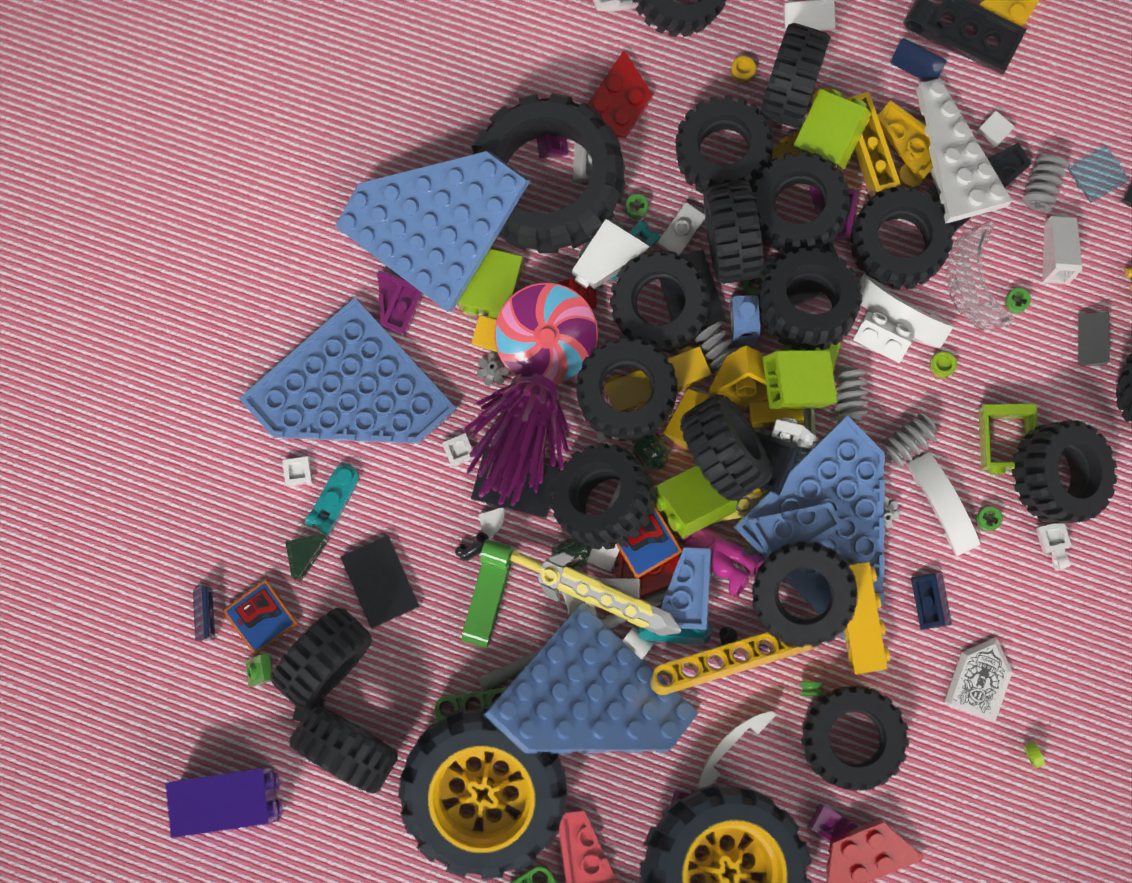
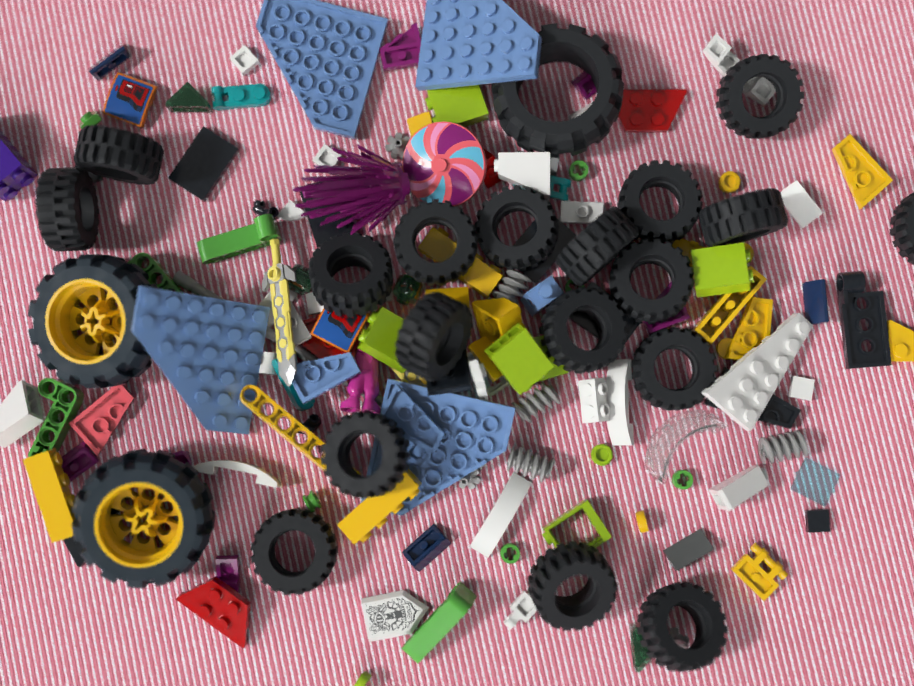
camera: 50 degrees right, 5 degrees up
(1021, 633) = (439, 622): none -> bright green beam
(1037, 366) = (641, 521): none -> yellow tile

